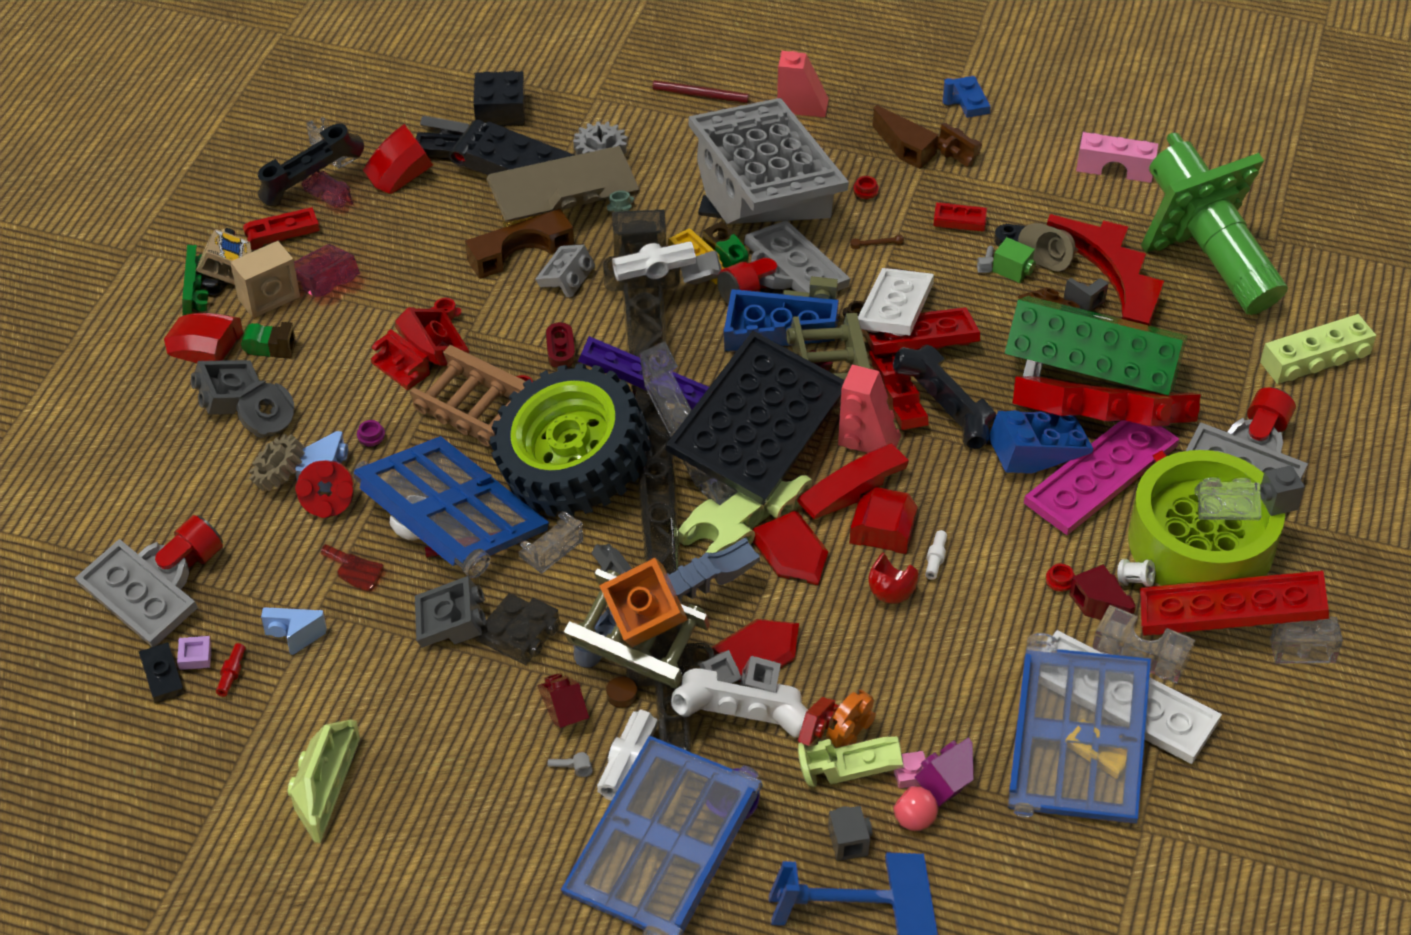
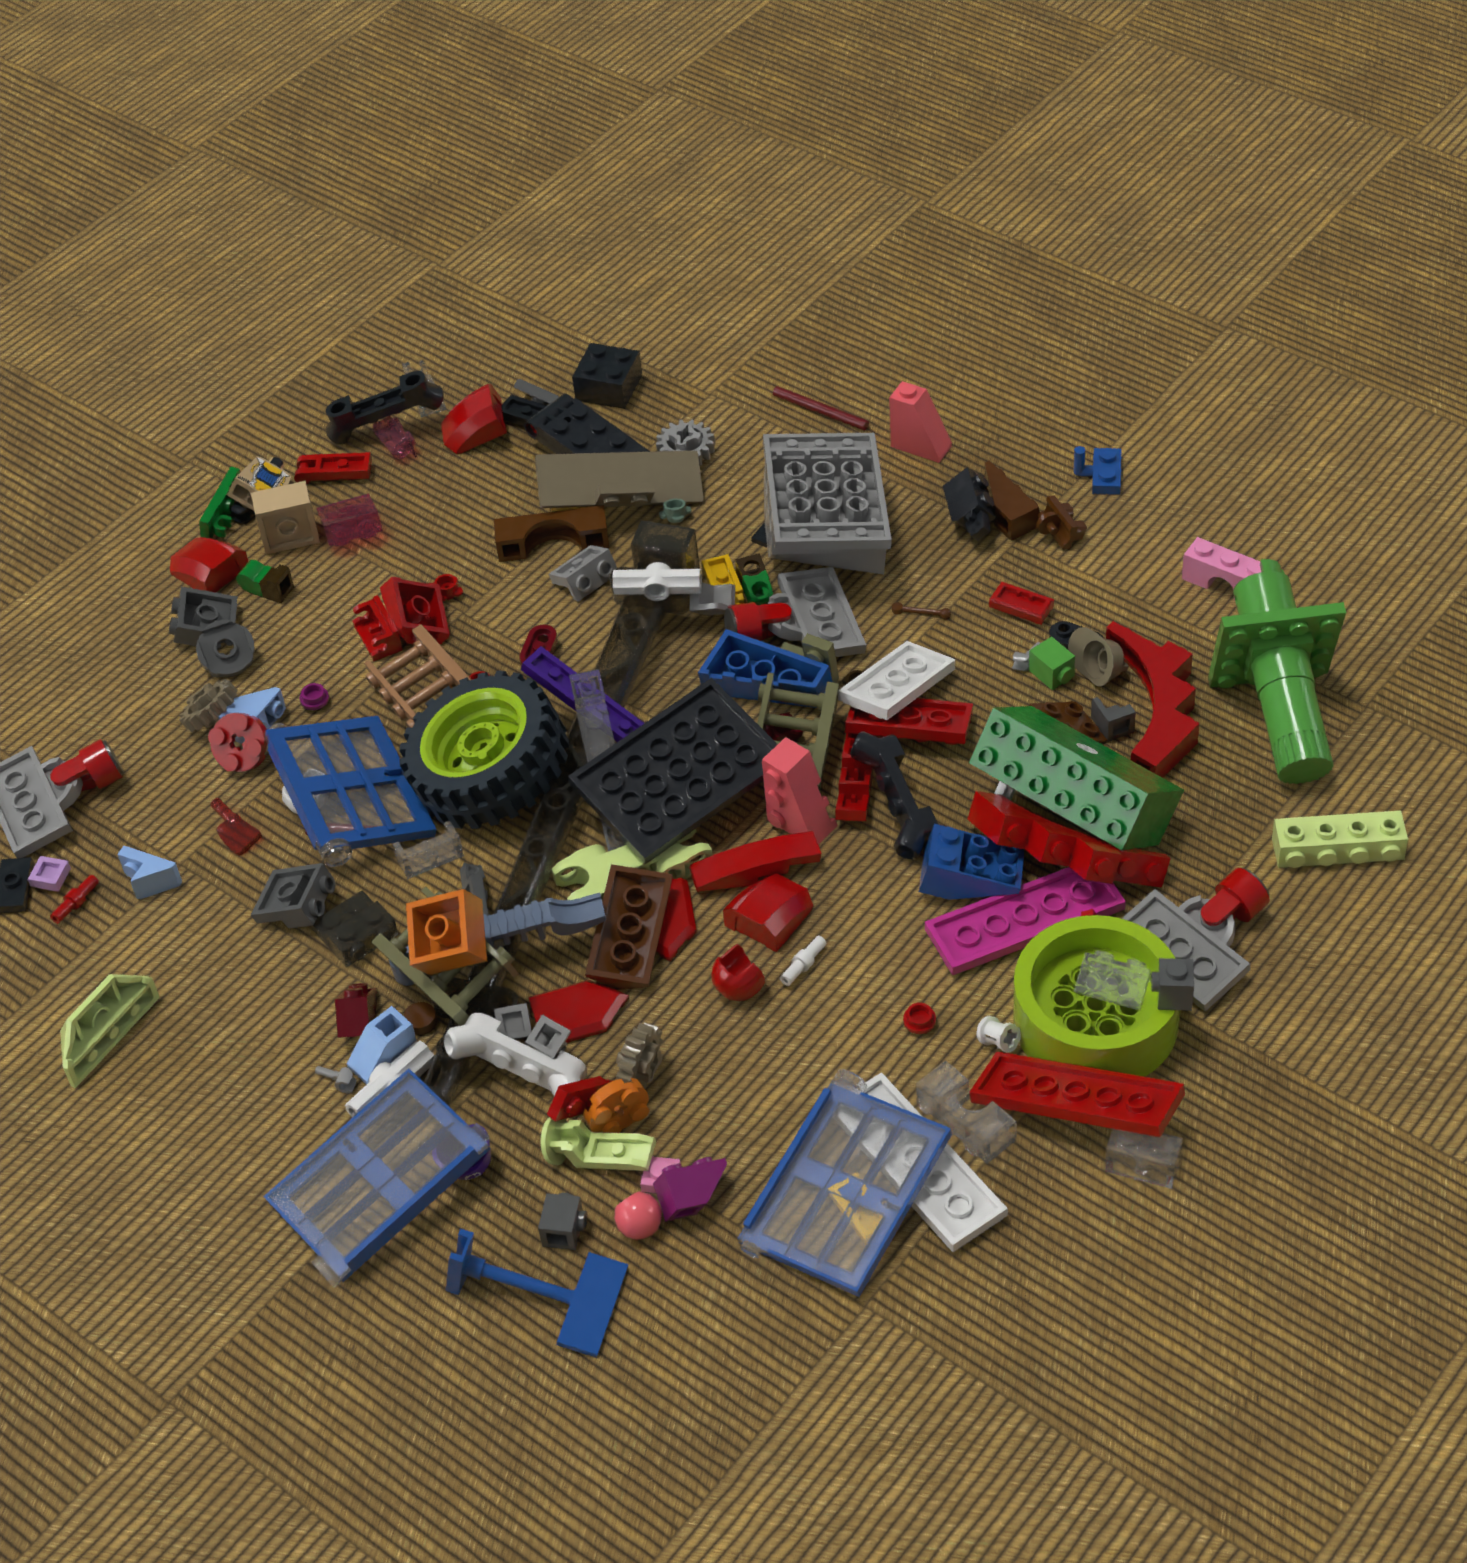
camera: 25 degrees right, 0 degrees up
(604, 723) = (381, 1042): none -> light blue slope
(781, 576) = (629, 937): none -> reddish brown slope
(849, 669) = (640, 1054): none -> dark tan gear
(866, 187) = (938, 549): red plate -> none
(877, 143) = (970, 502): none -> black hinge
(1097, 590) = (950, 1041): dark red slope -> none

